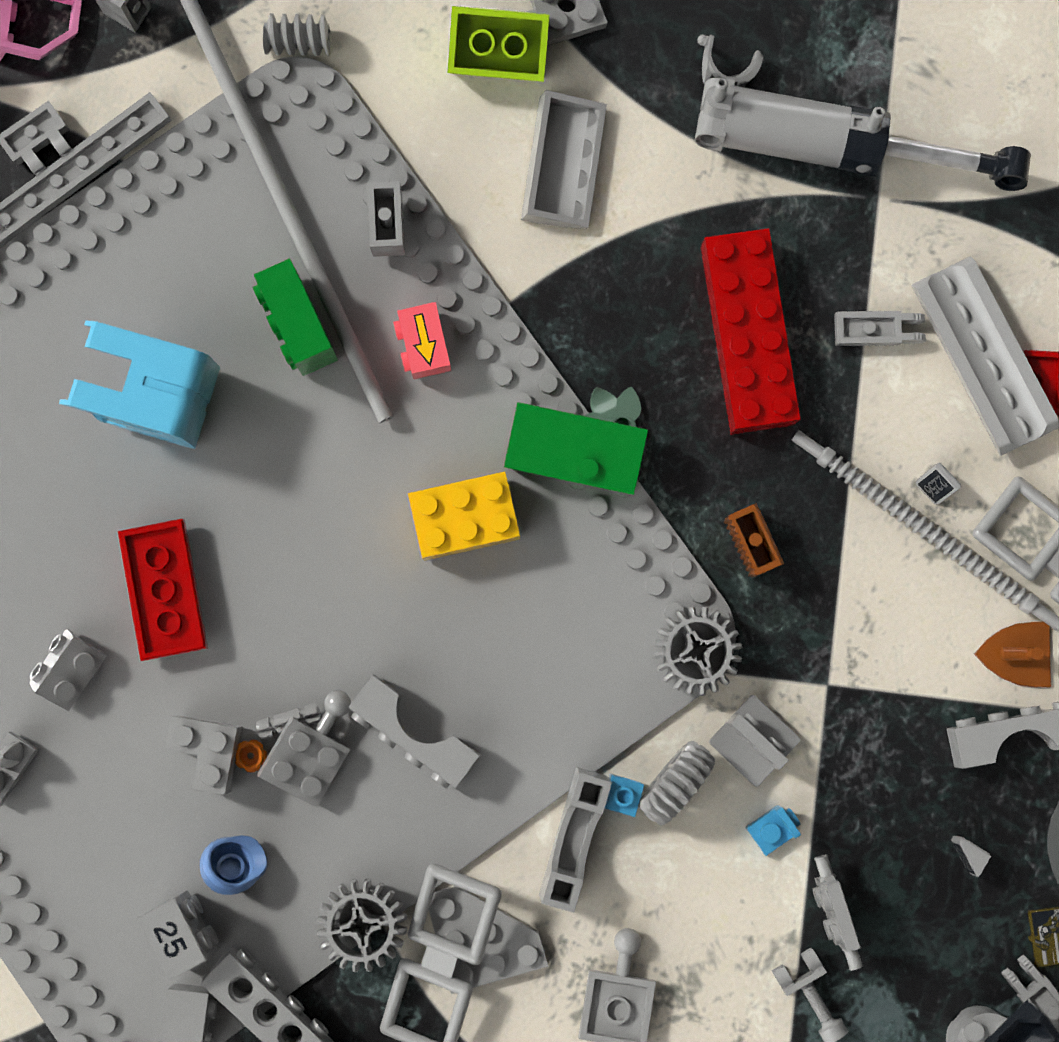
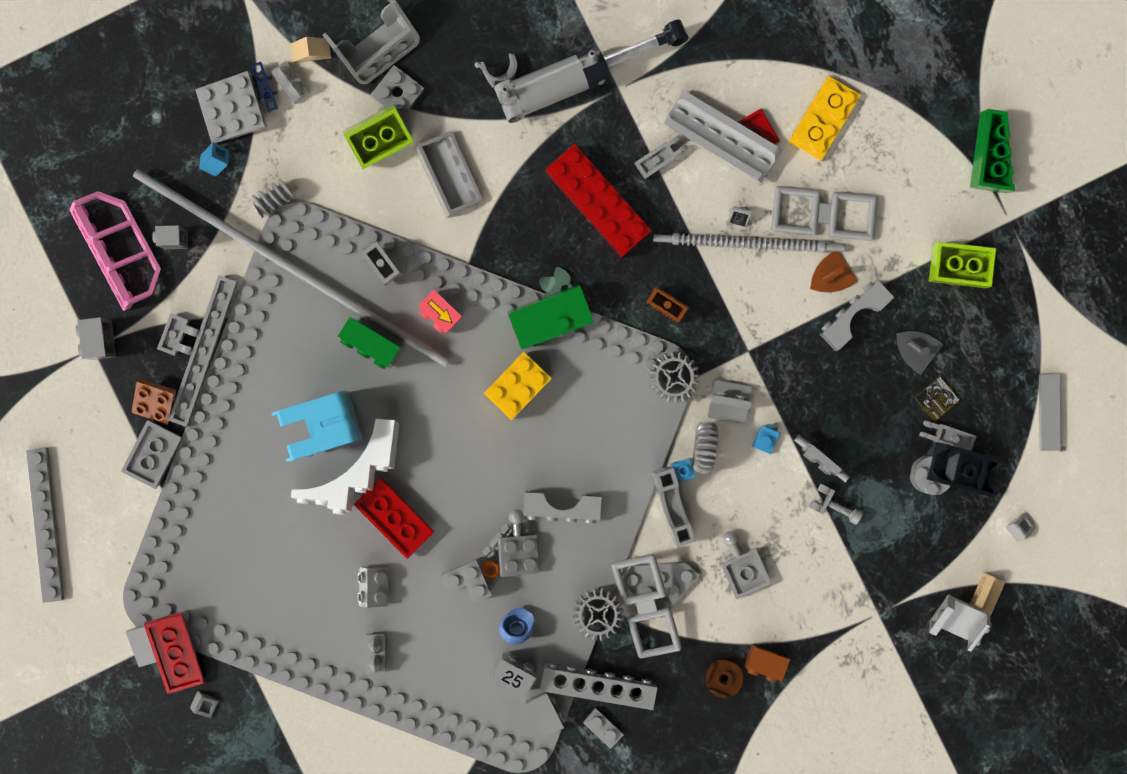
camera: 30 degrees left, 5 degrees up
(198, 485) = (378, 454): none -> white arch
(971, 855) = (869, 388): light grey slope -> none

